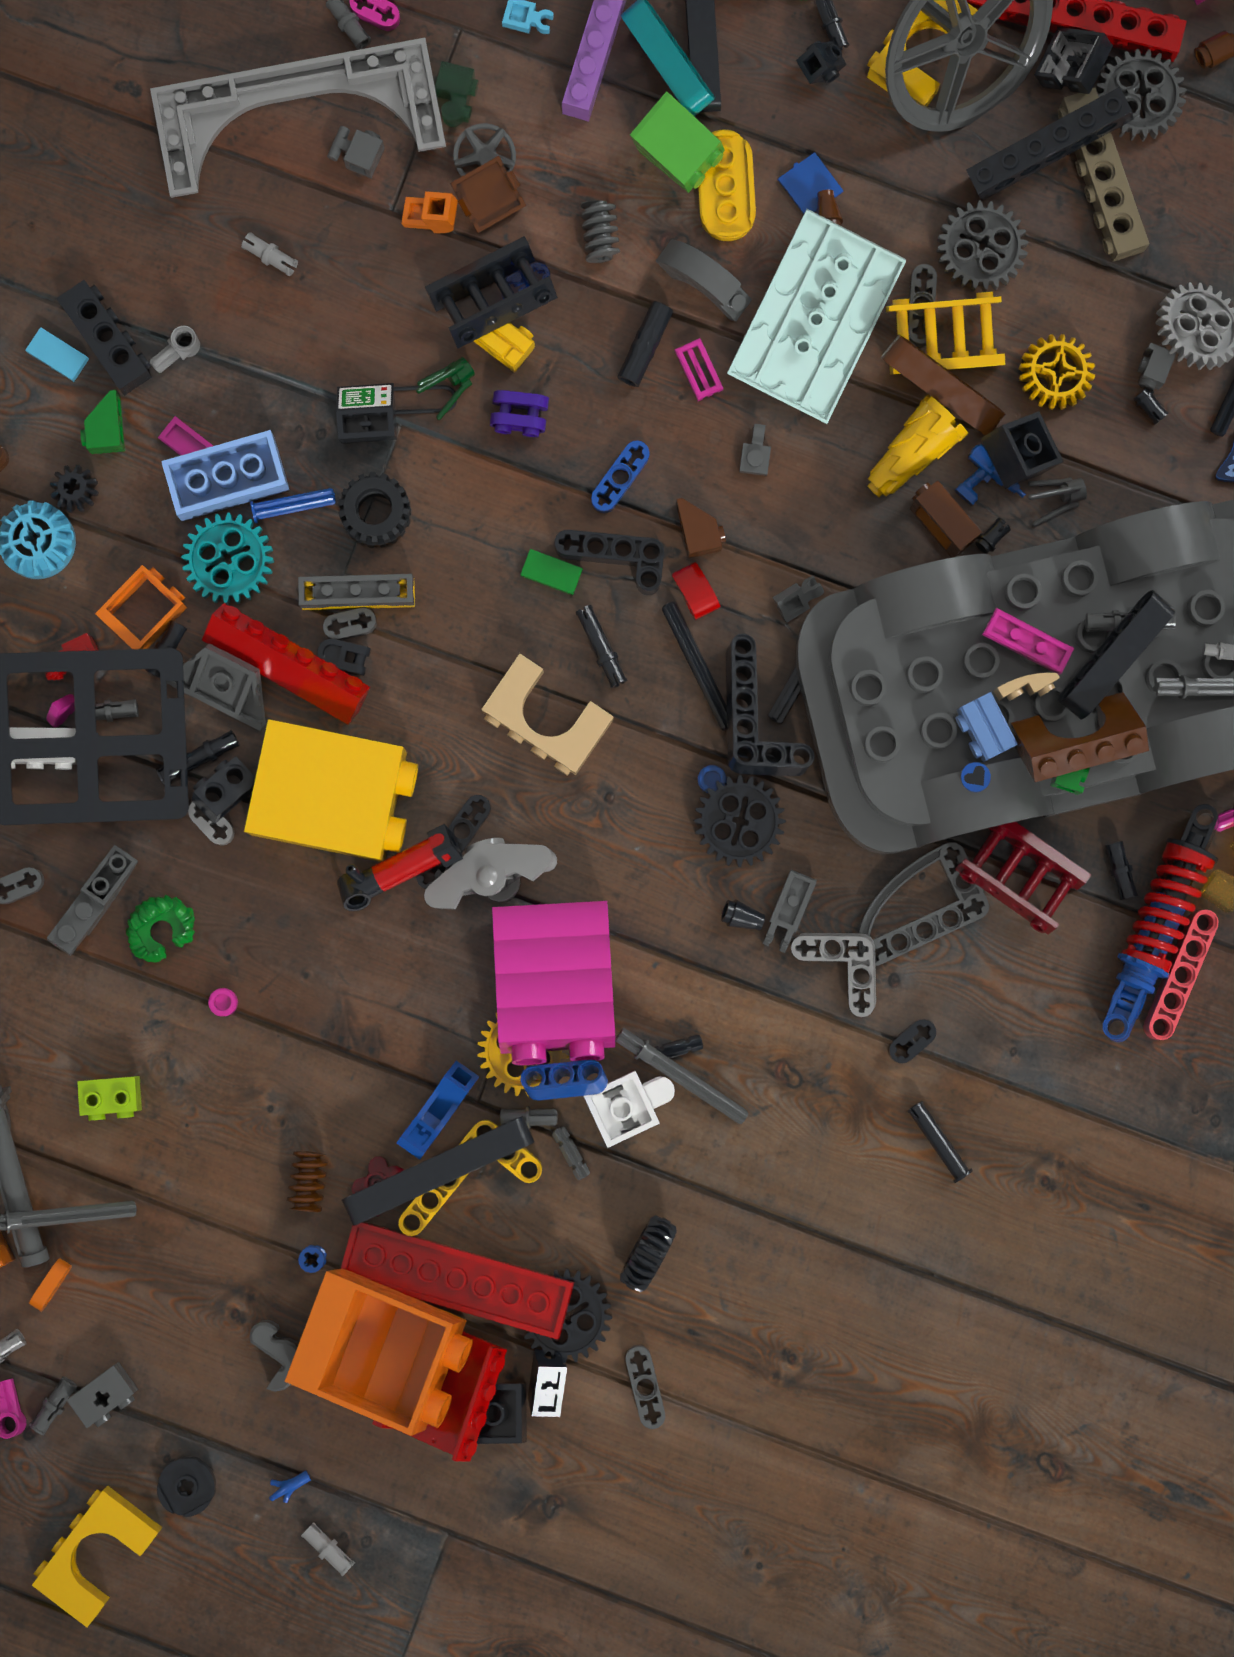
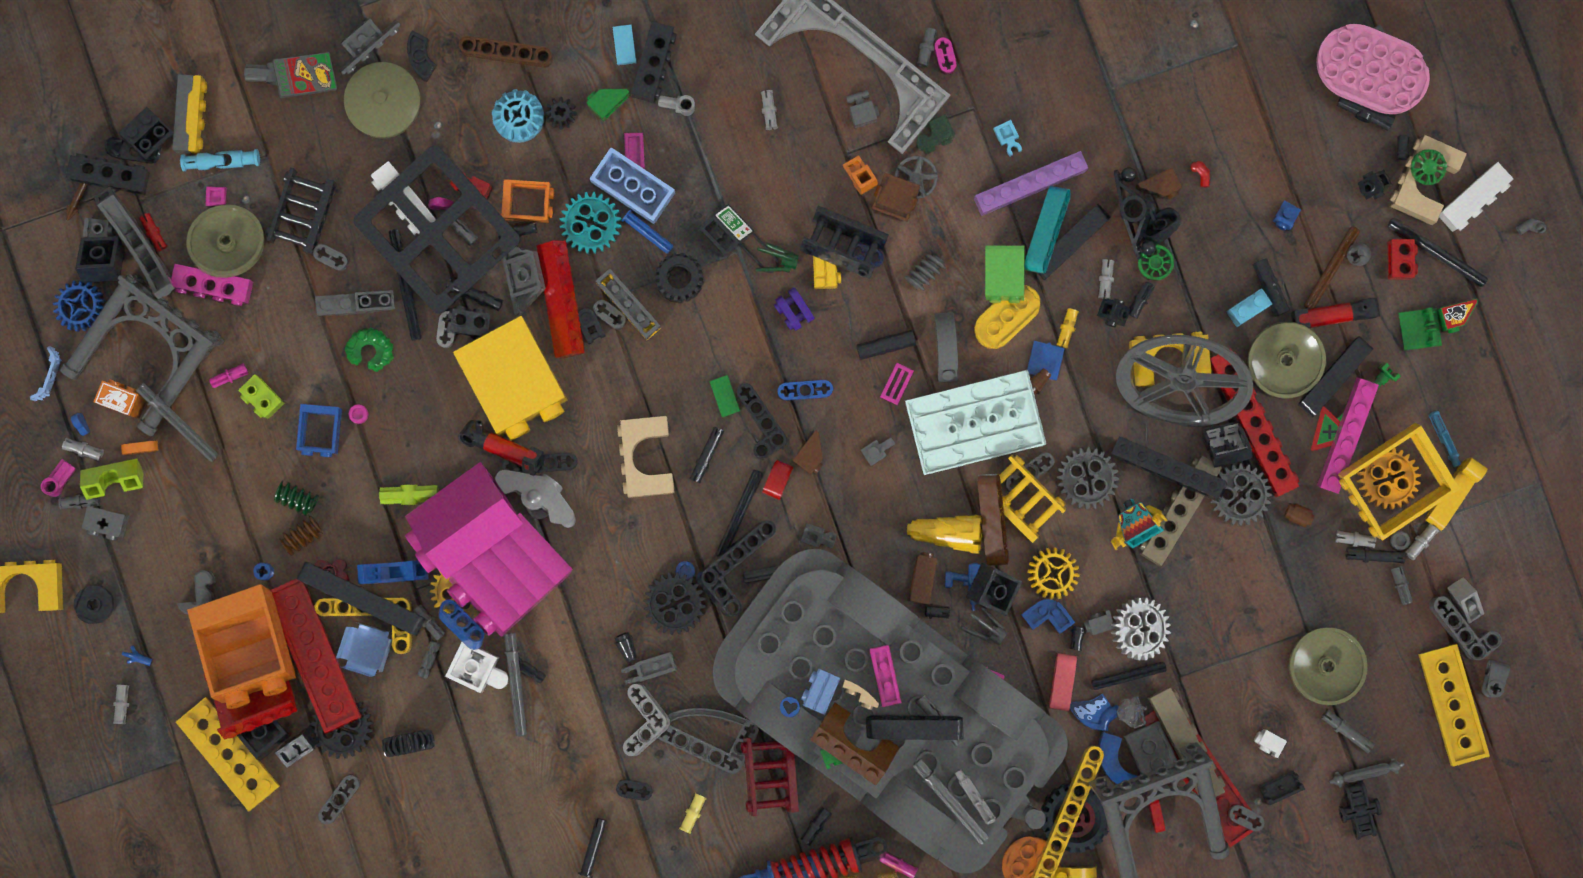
camera: 50 degrees right, 0 degrees up
(45, 1363) = (96, 480): none -> lime arch
(54, 1112) = (229, 376): none -> dark pink axle
(130, 832) = (406, 292): none -> black axle
(168, 1055) = (321, 410): none -> blue window
(260, 1152) = (295, 498): none -> dark green piece
(364, 1019) = (407, 494): none -> lime piece
(447, 982) = (461, 522): none -> dark pink brick
(499, 1215) = (364, 649): none -> light blue piece
(500, 1488) = (226, 768): none -> yellow plate
(776, 41) = (1106, 279): none -> light grey pin
(795, 129) = (1067, 328): none -> yellow pin
(993, 996) = (692, 813): none -> light yellow pin
(1082, 230) = (1137, 524): none -> torso
(1094, 411) = (1048, 610): none -> blue plate
(1187, 462) = (1062, 682): none -> coral beam

